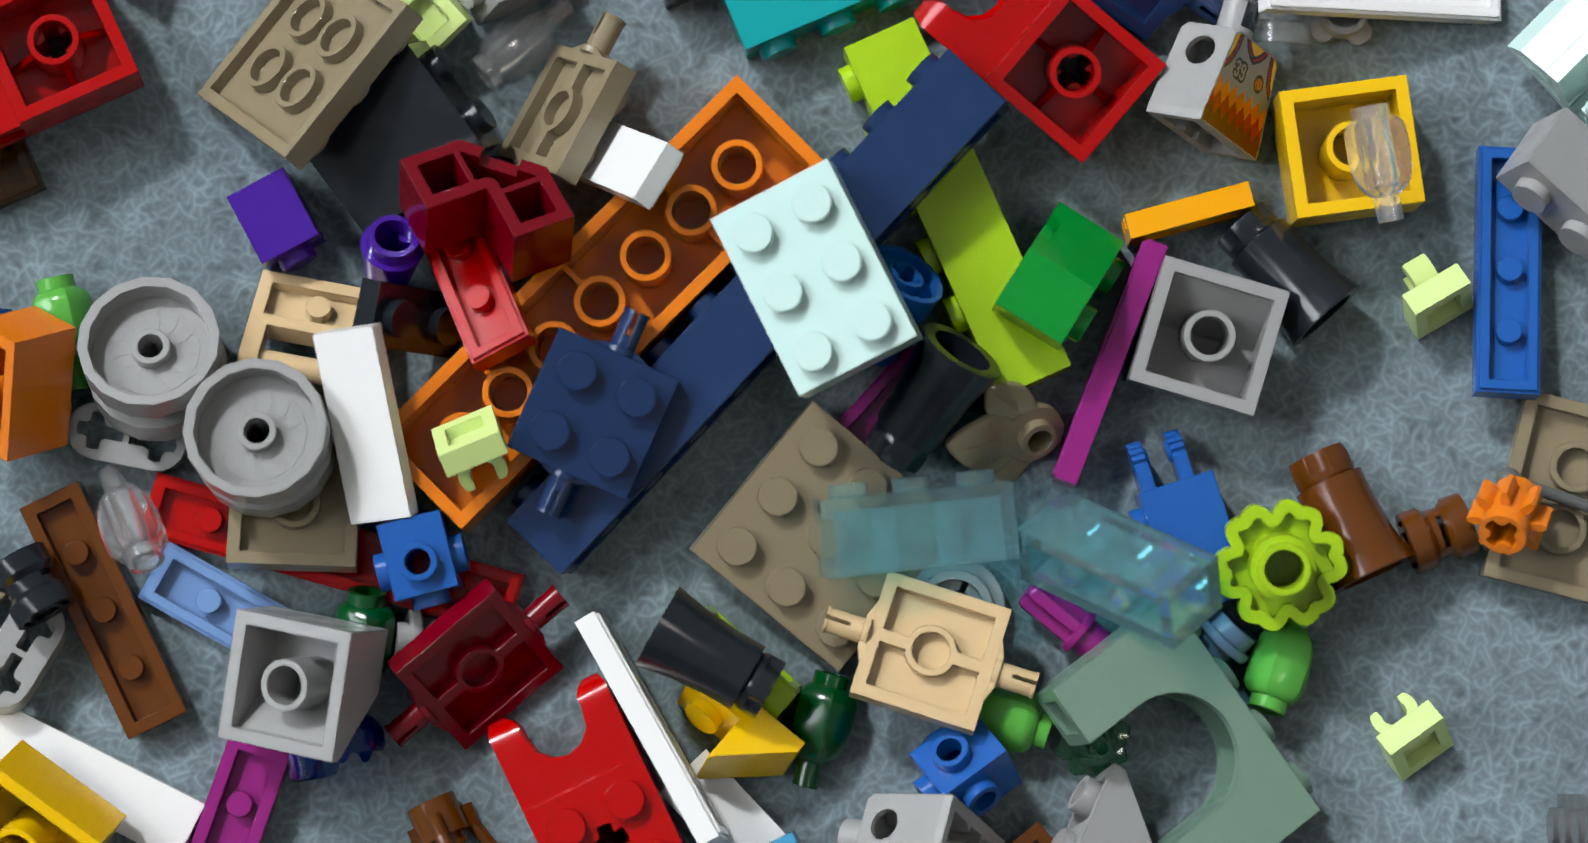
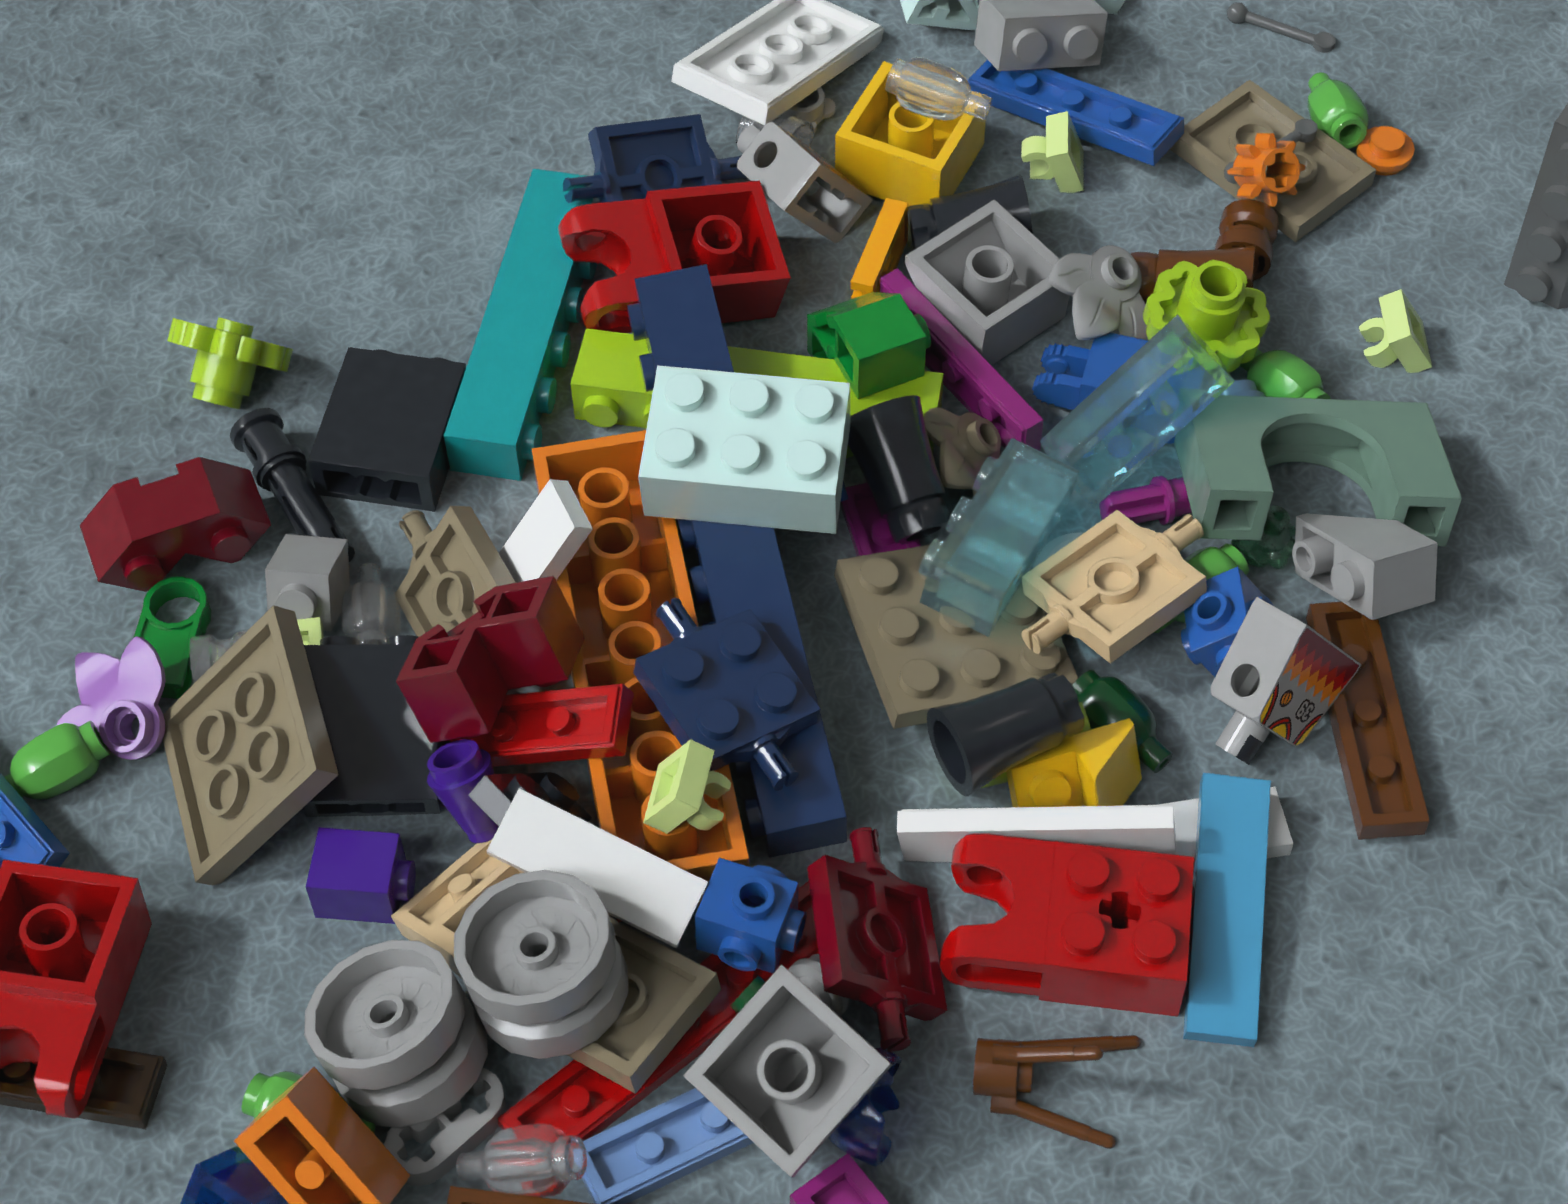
camera: 60 degrees left, 30 degrees down
(1243, 454) = (1103, 292): none -> light grey plate

